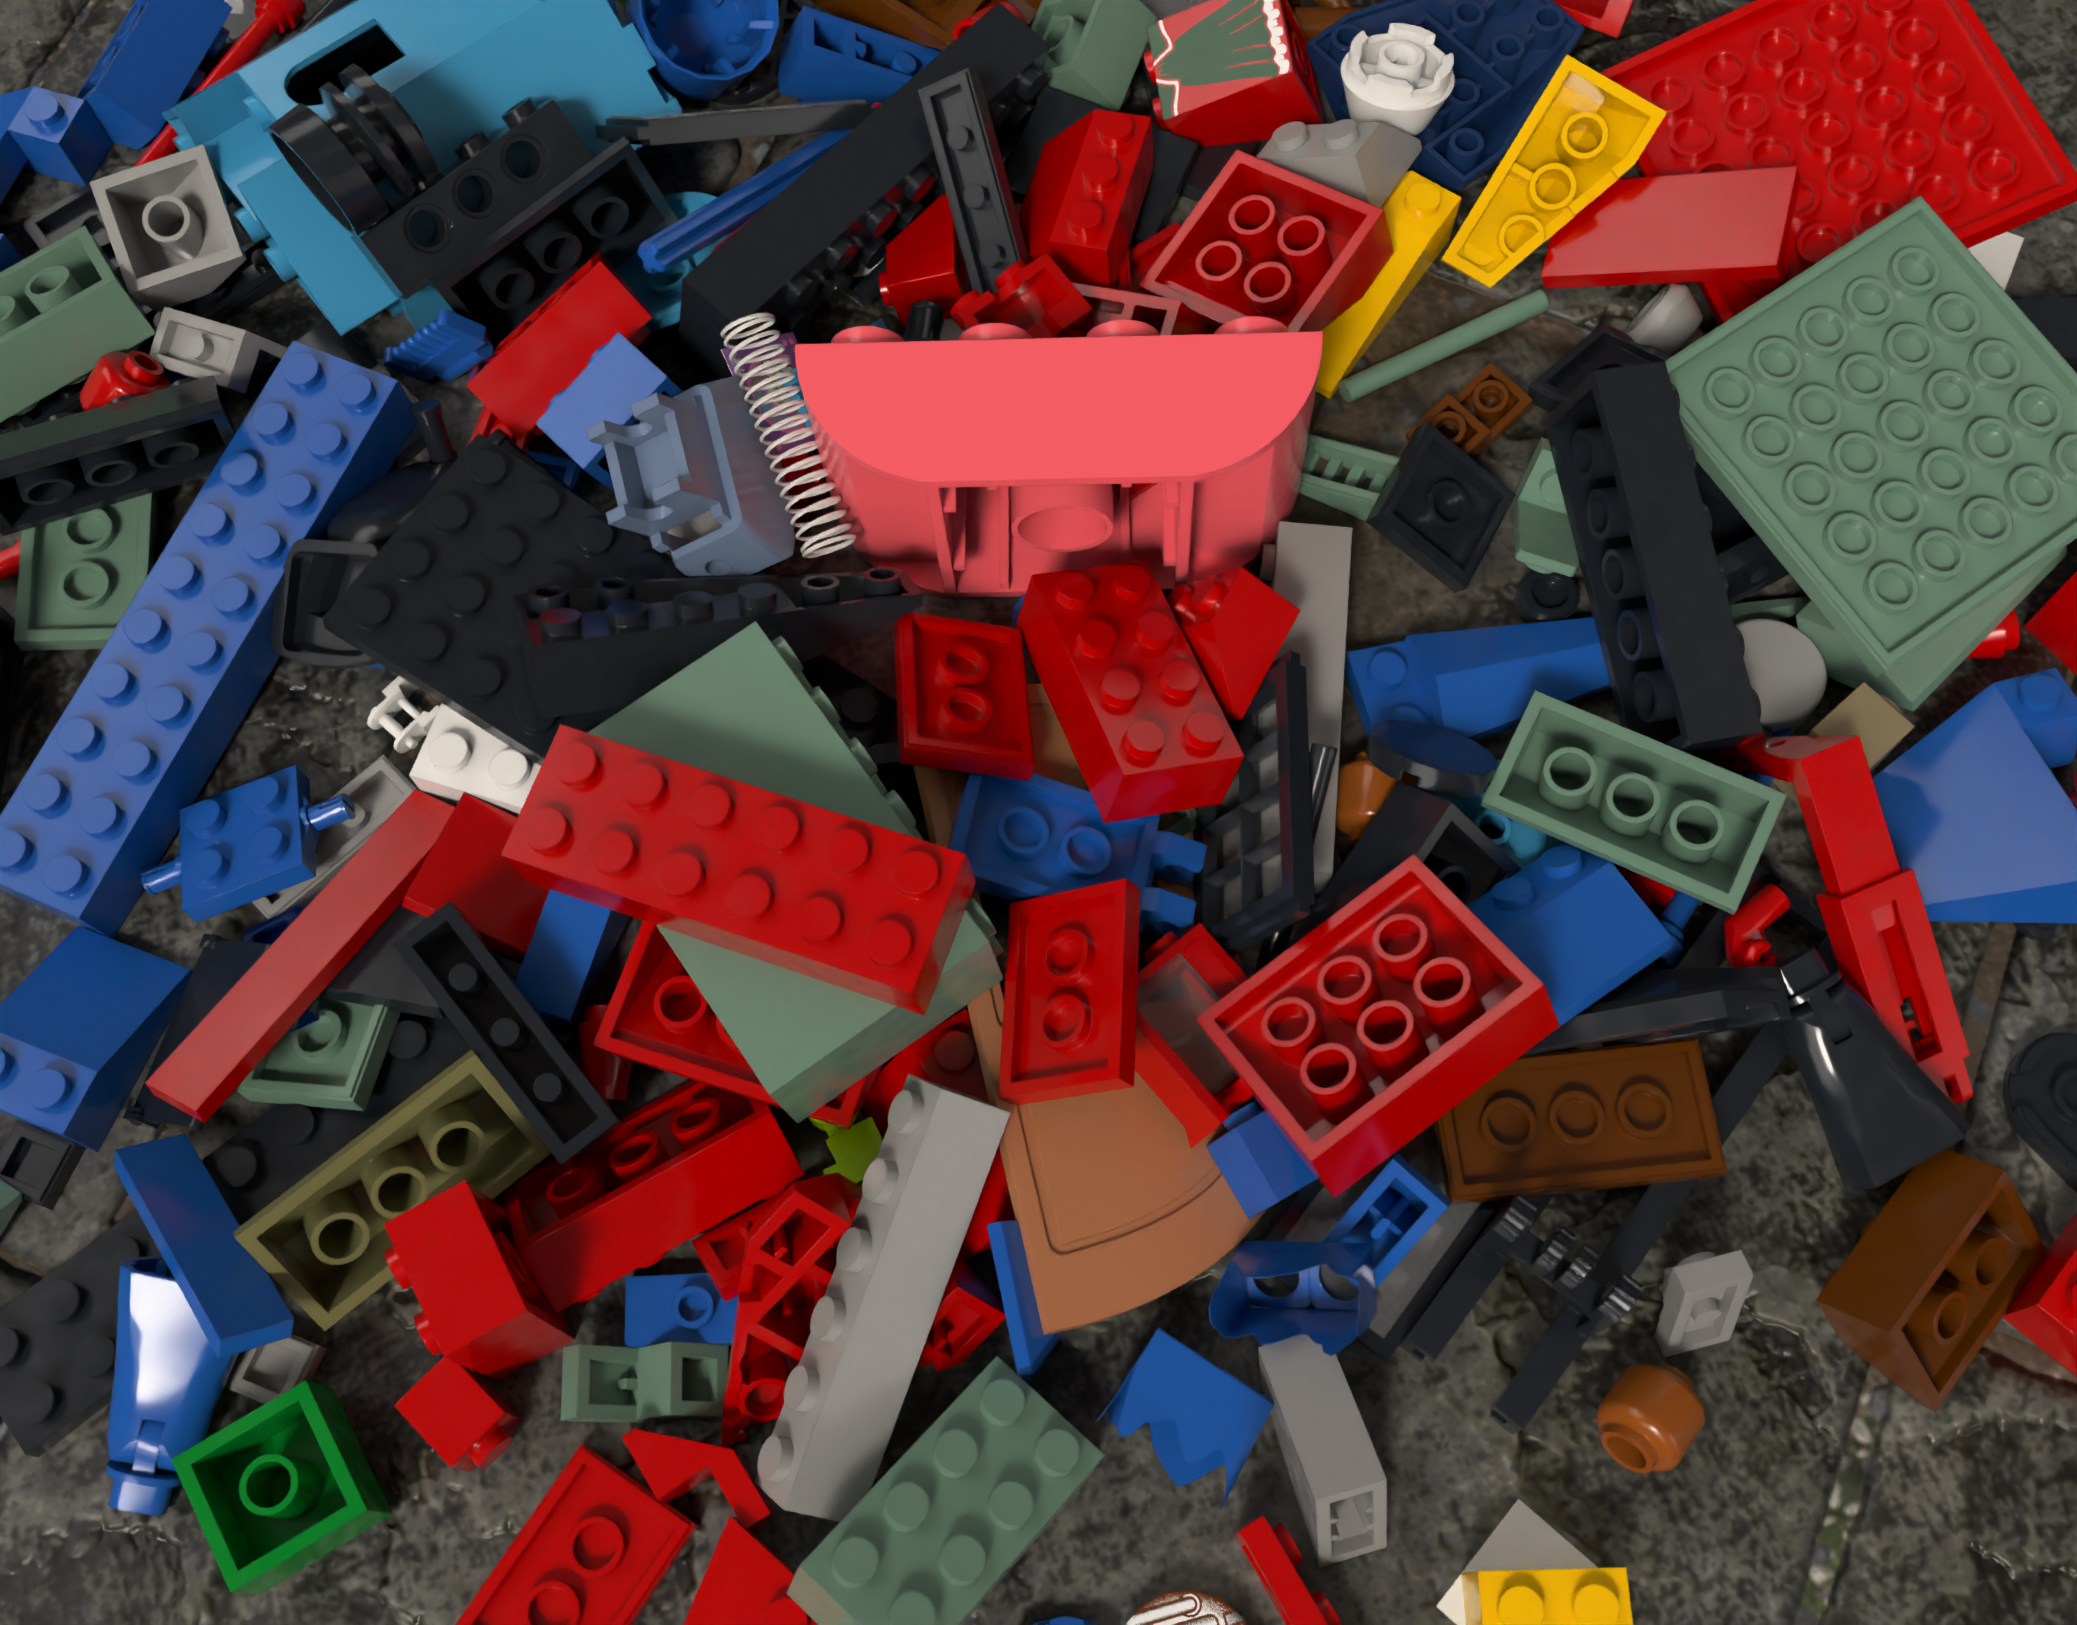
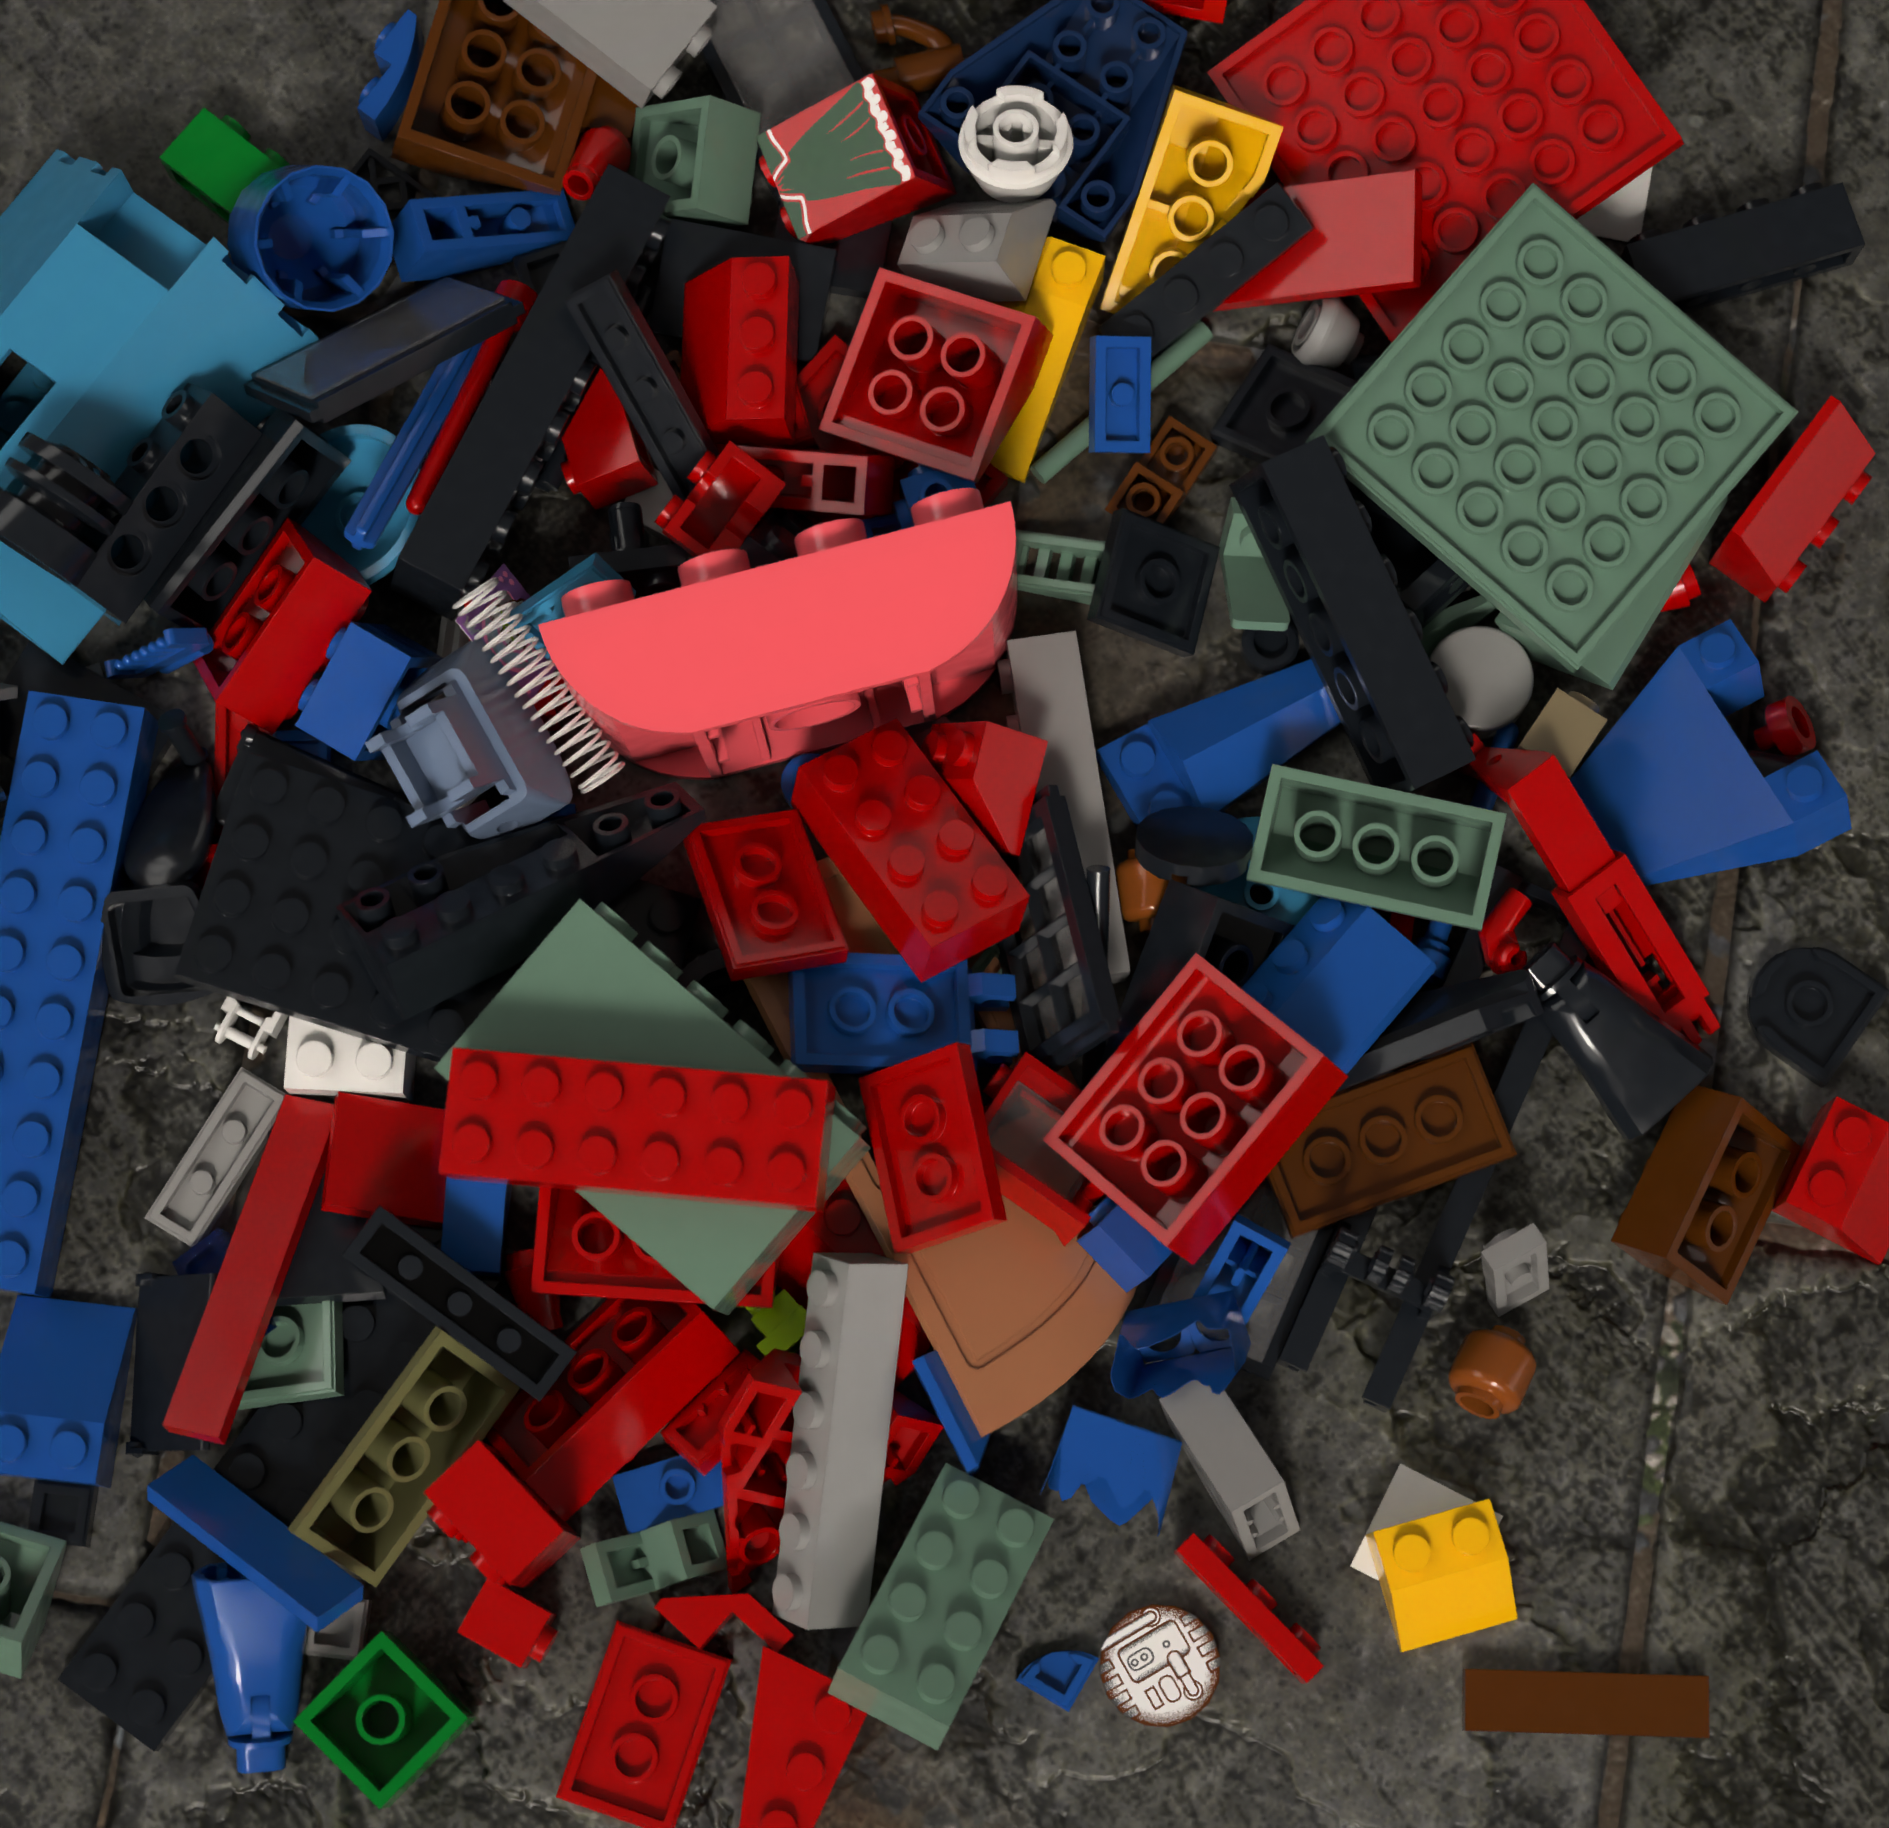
camera: 15 degrees left, 10 degrees up
(247, 843) = (150, 1183): blue plate -> none
(1446, 327) = (1120, 394): none -> blue plate
(1558, 241) = (1212, 271): none -> black plate

